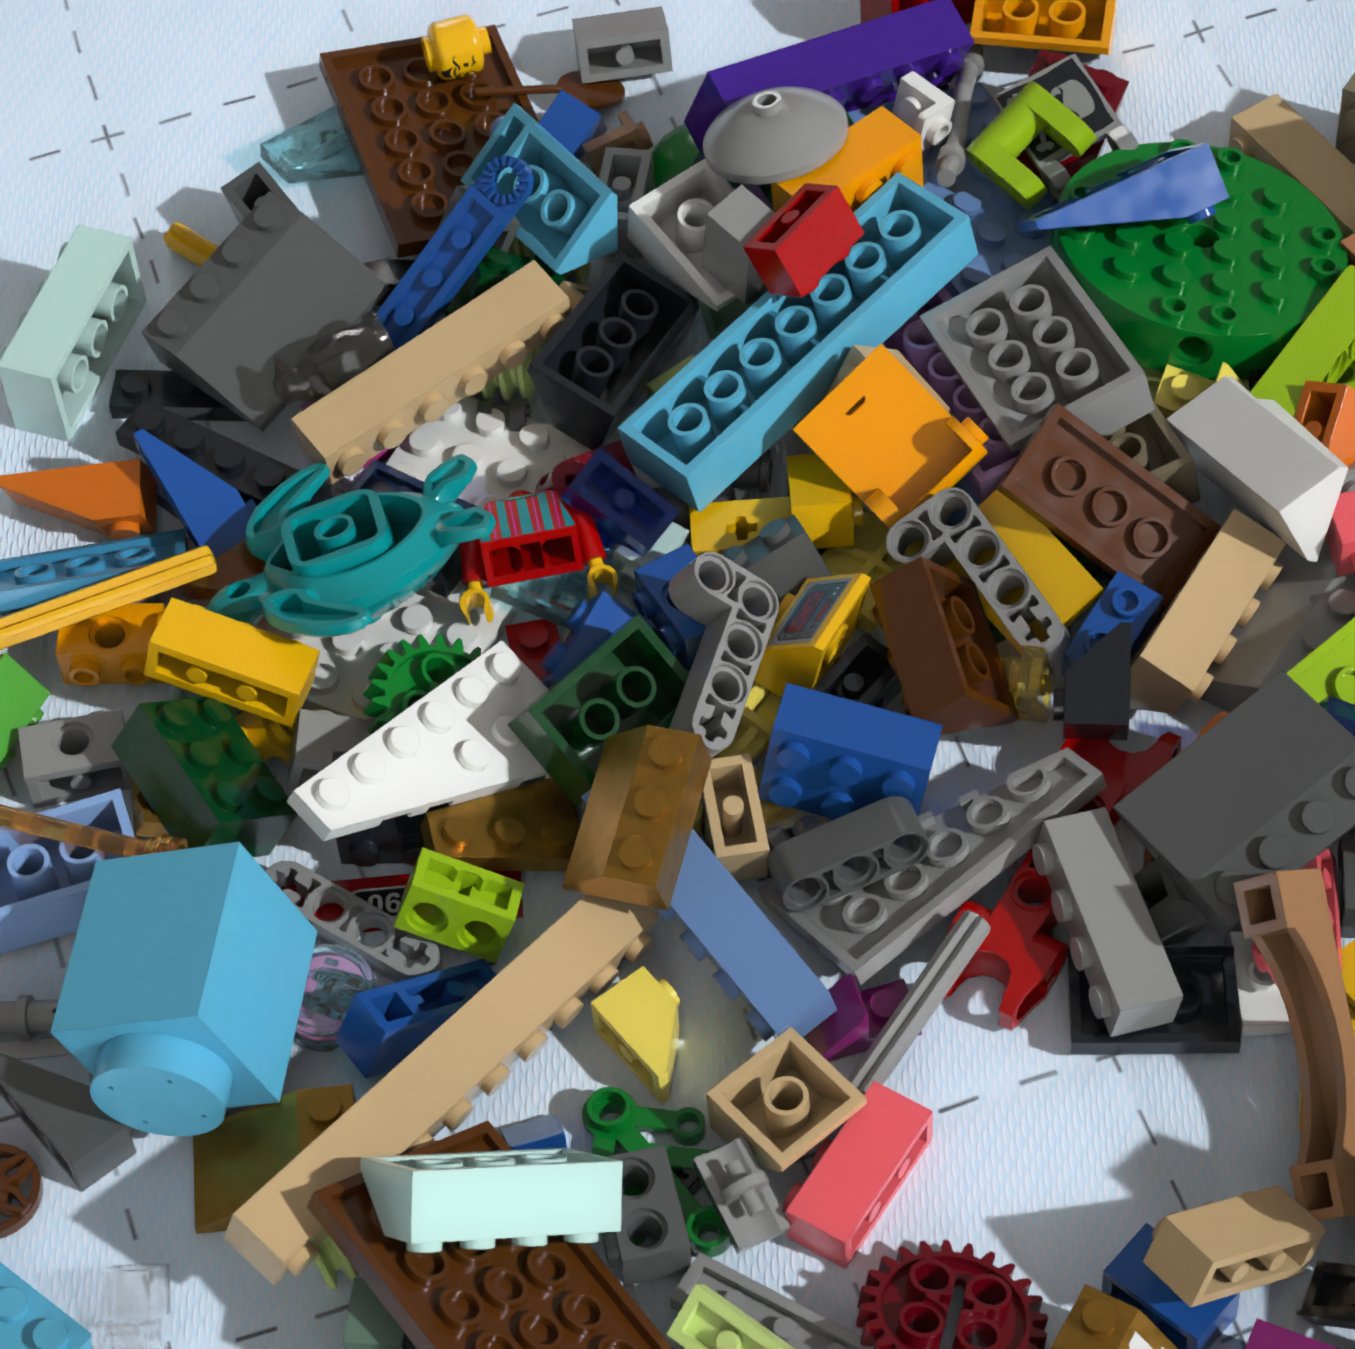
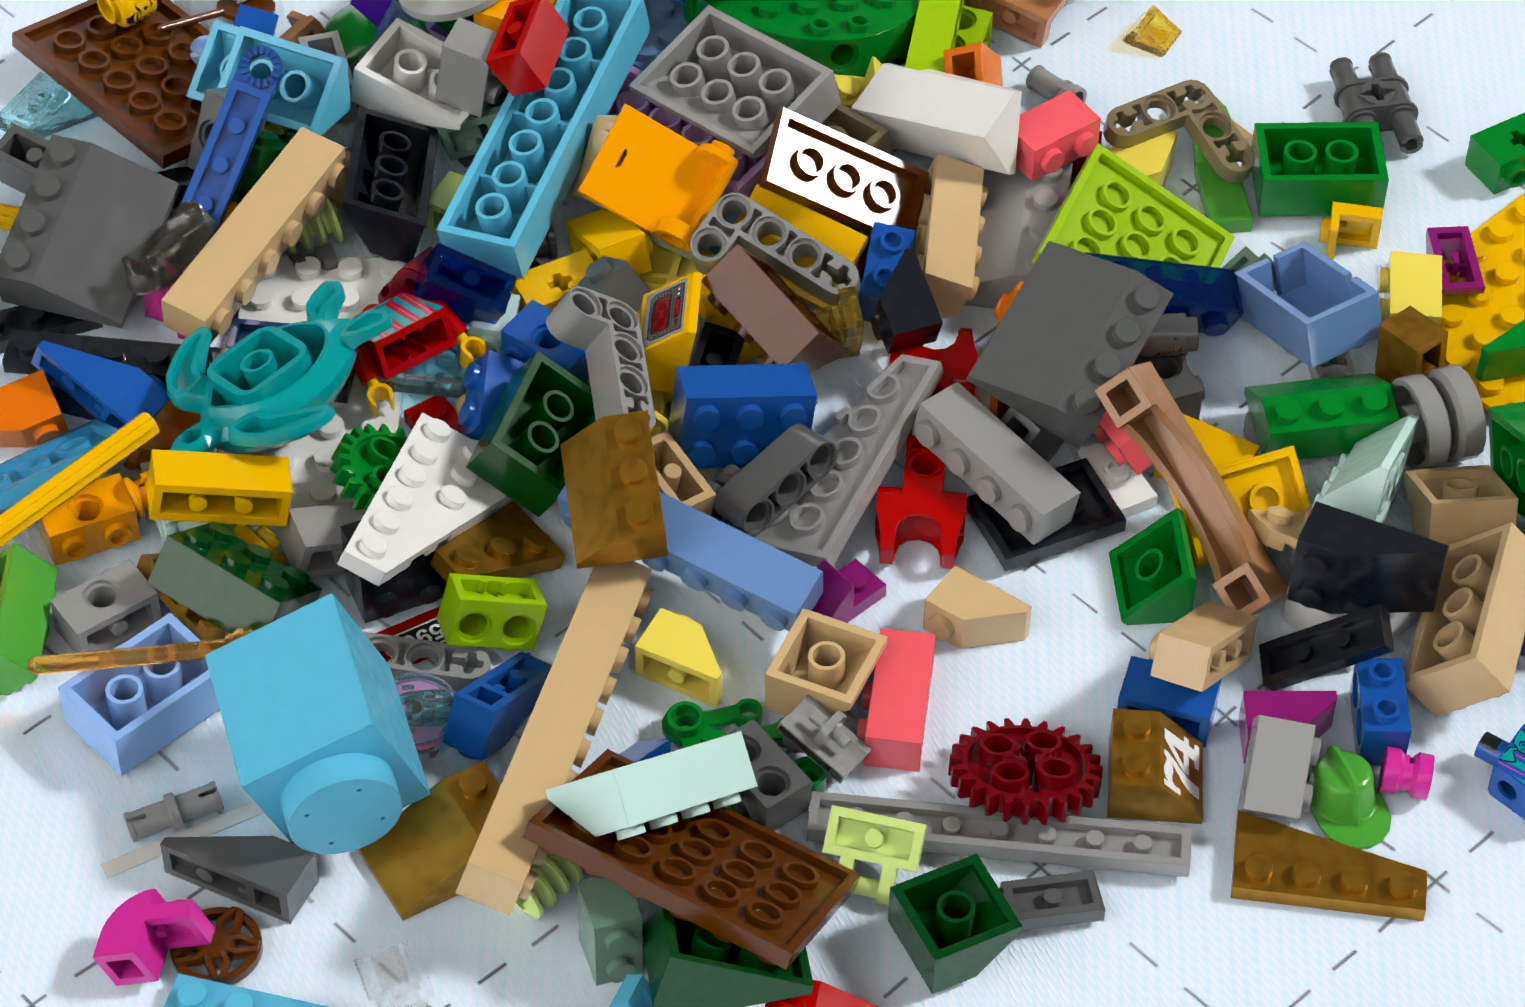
camera: 30 degrees left, 5 degrees down
(920, 1001) = (885, 558): light grey axle -> none
(999, 1095) = (974, 612): none -> tan slope
(1238, 1124) = (1155, 573): none -> green slope

